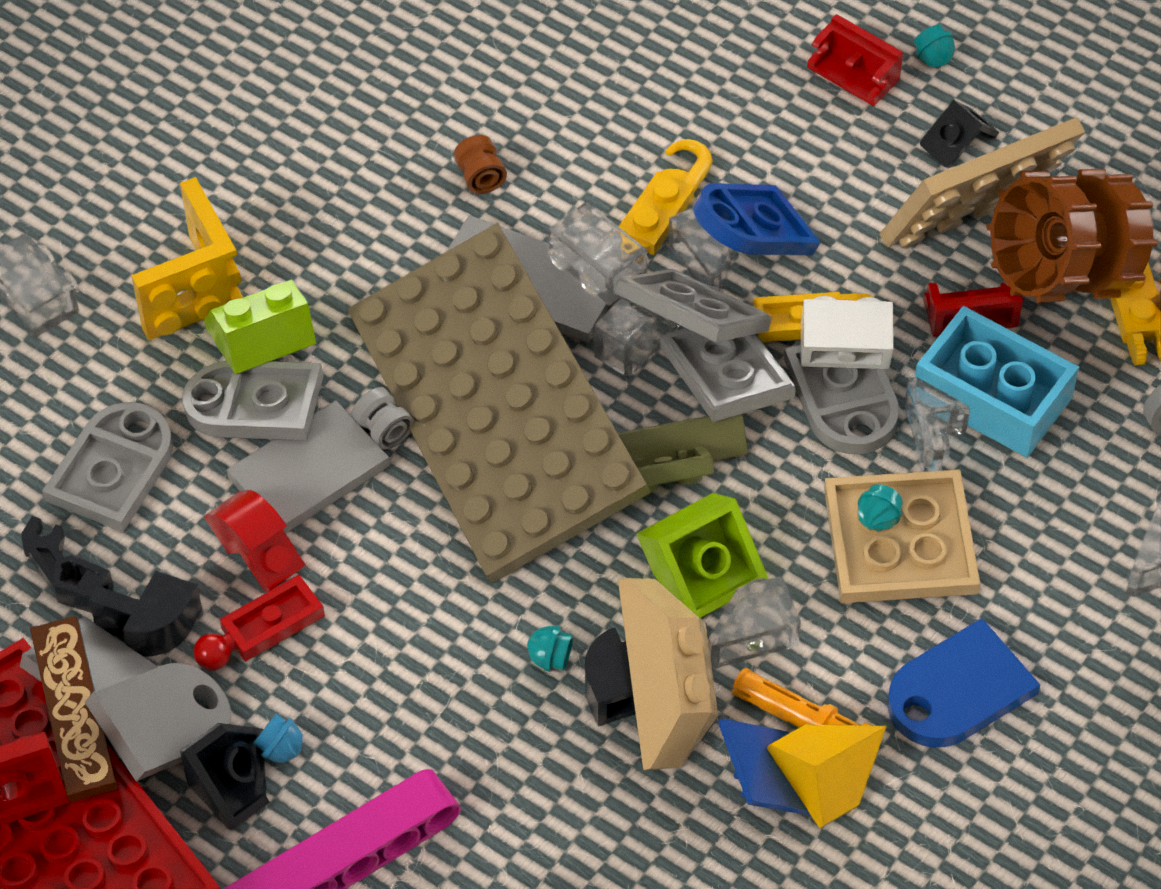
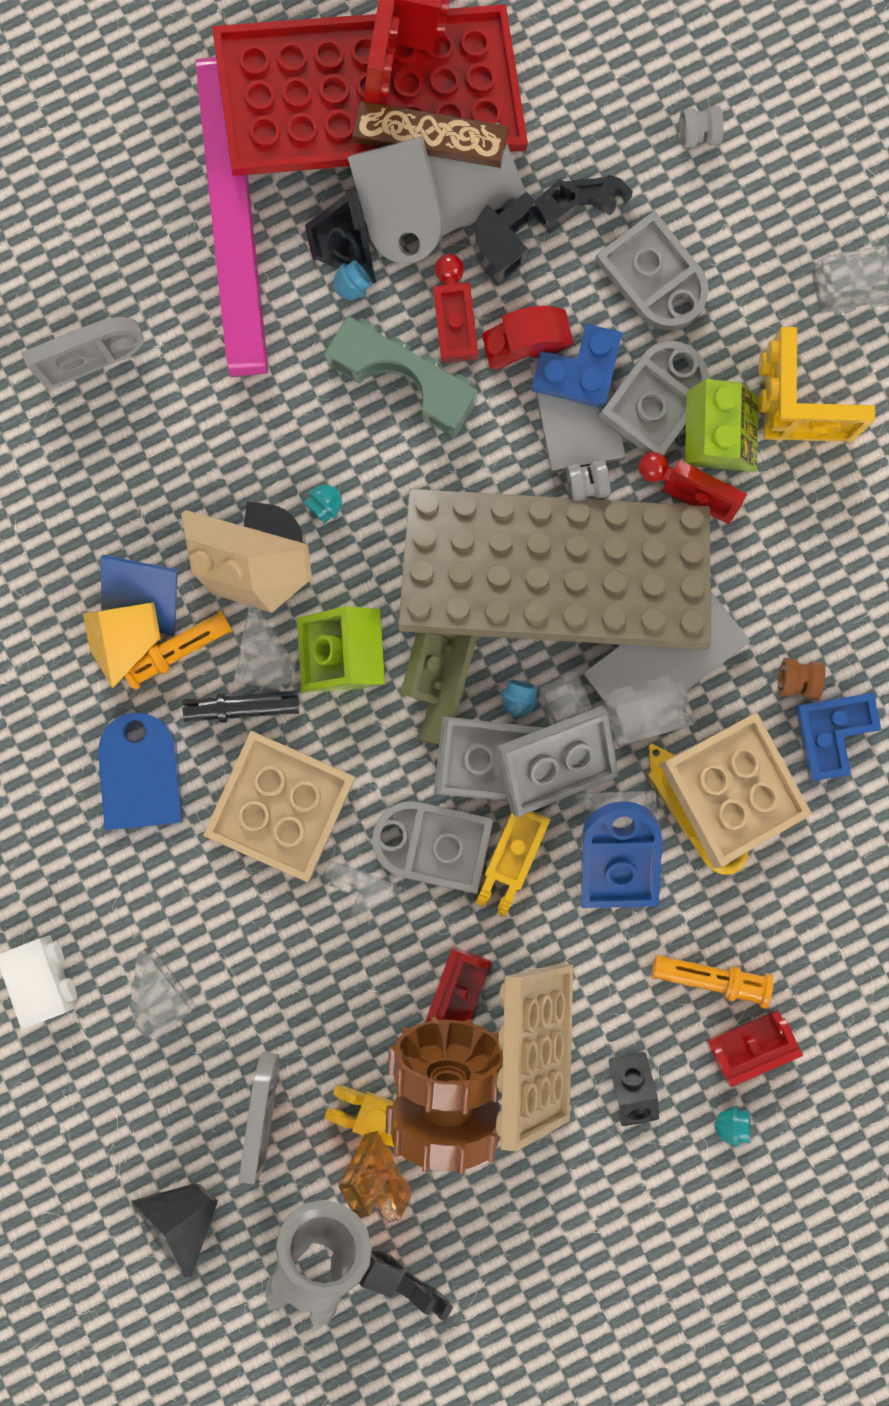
camera: 125 degrees right, 30 degrees up
(262, 463) = (583, 378): none -> blue plate
(334, 327) = (693, 486): none -> red plate
(359, 685) = (363, 352): none -> sand green arch
(512, 128) = (824, 729): none -> blue plate
(624, 164) = (735, 790): none -> tan plate
(647, 379) = (519, 698): none -> dark azure plate
(805, 88) = (730, 982): none -> light orange pin
(833, 635) = (240, 706): none -> black pin
(846, 333) = (468, 866): white brick -> none
(879, 508) = (295, 793): teal plate -> none
(1002, 377) = (366, 957): medium azure brick -> none

